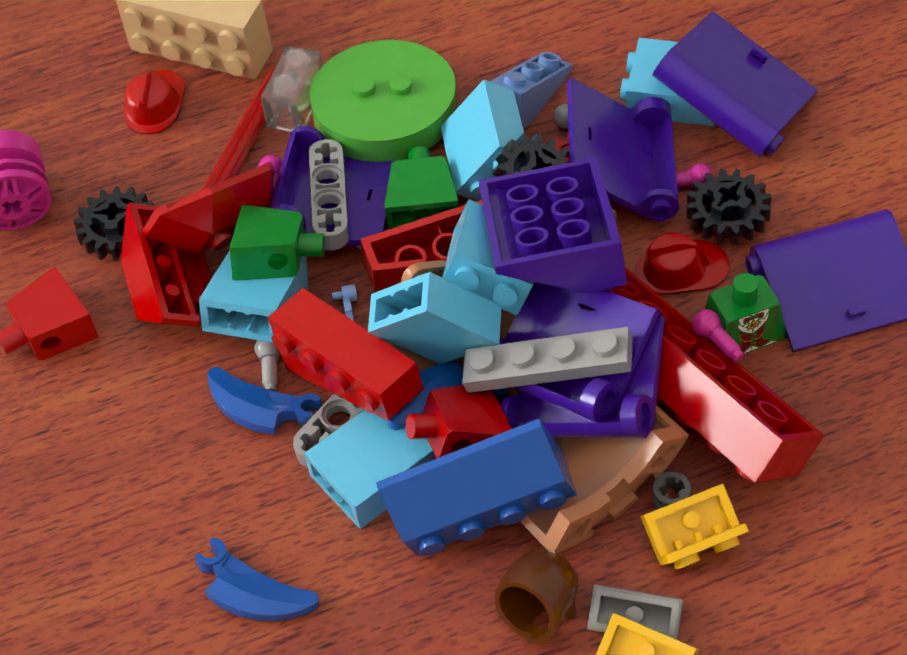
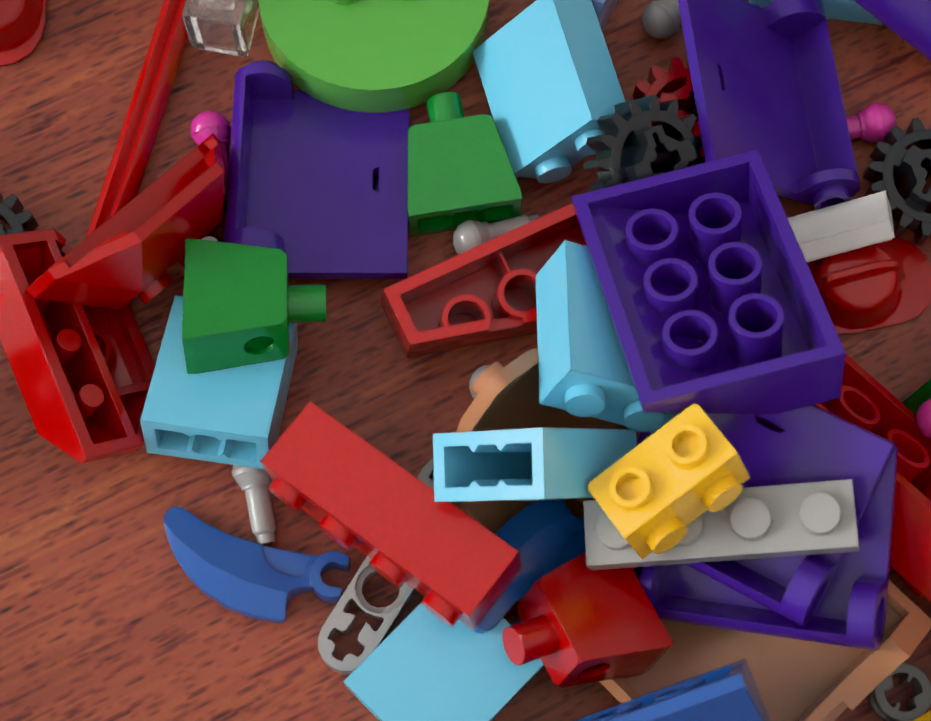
camera: 15 degrees left, 20 degrees up
(329, 193) = (313, 187): light grey beam -> none
(348, 295) = (366, 361): light blue piece -> none
(512, 320) = (670, 482): none -> yellow bracket
(657, 226) = (844, 226): none -> white tile

